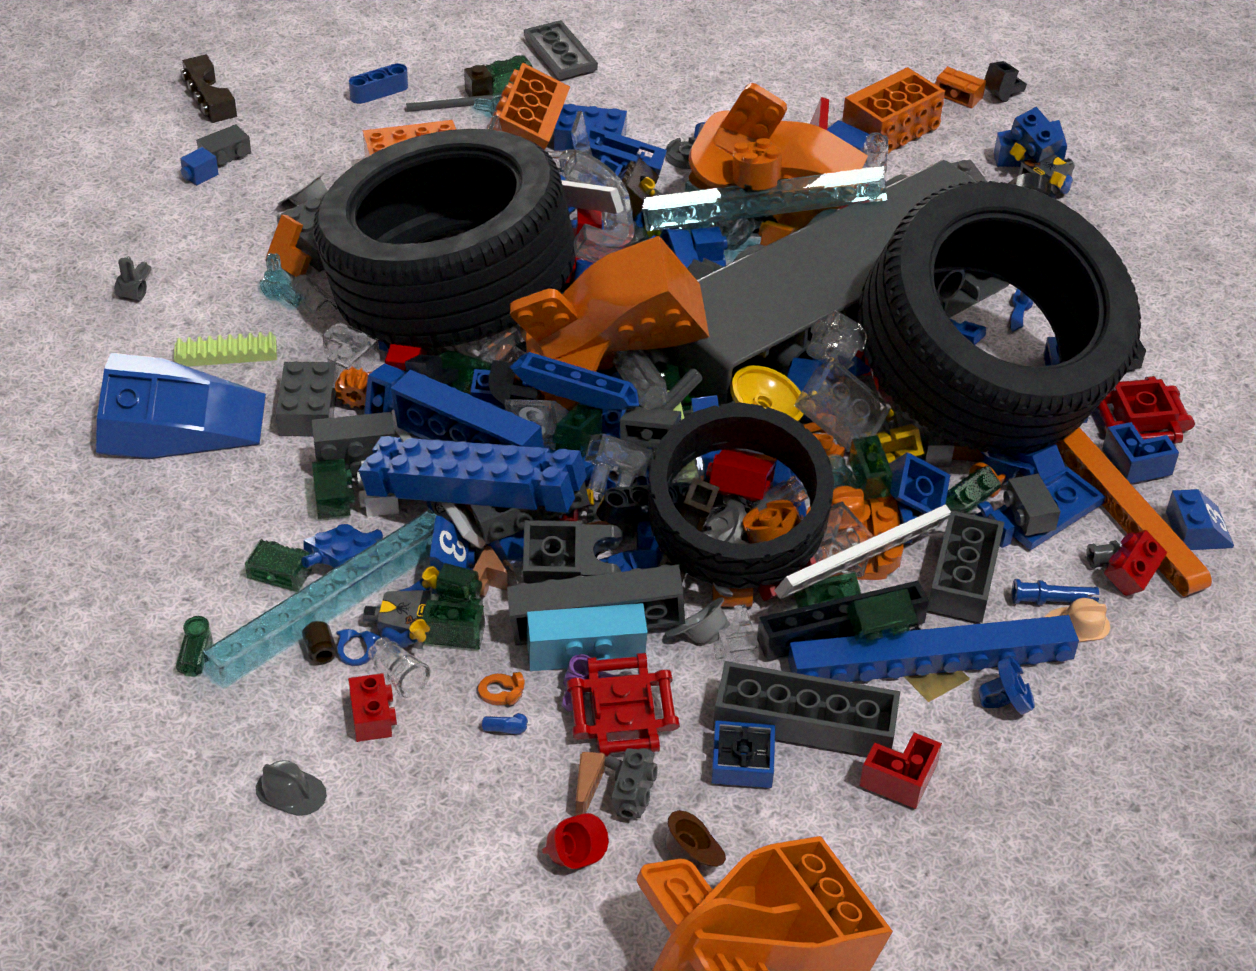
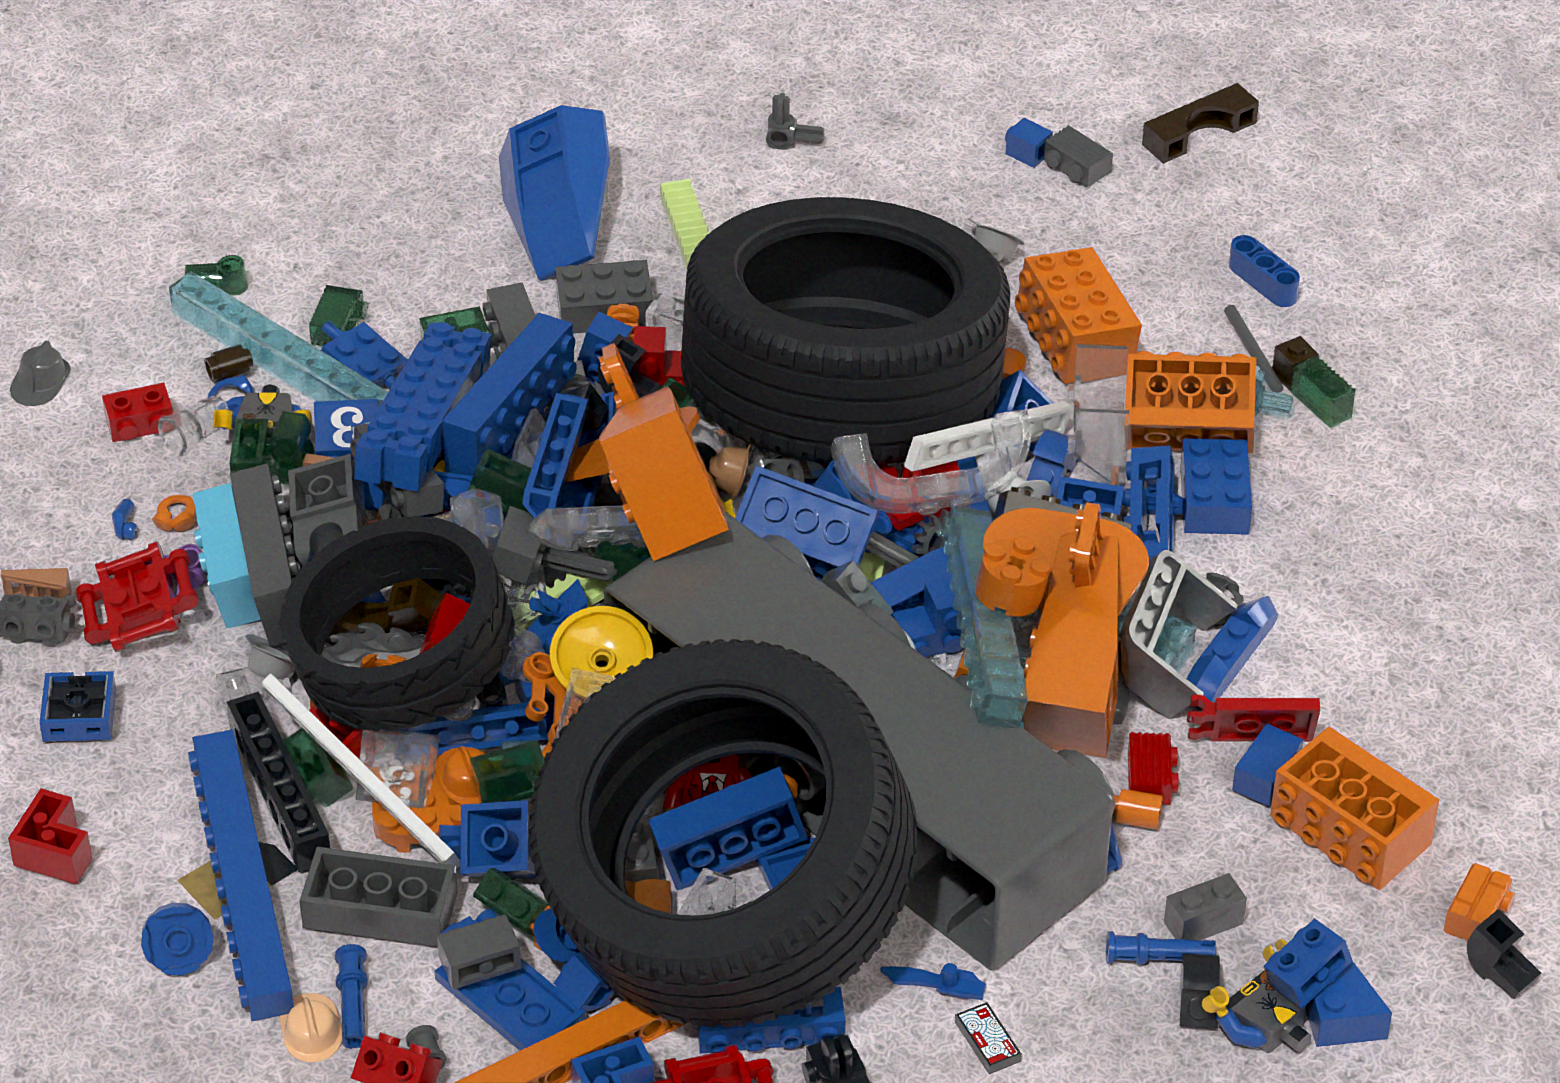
camera: 85 degrees right, 0 degrees up
(560, 49) = (1419, 441): dark grey piece -> none
(808, 708) = (137, 753): dark grey brick -> none
(877, 150) = (1226, 793): clear plant -> none
(882, 615) = (256, 791): clear green brick -> none

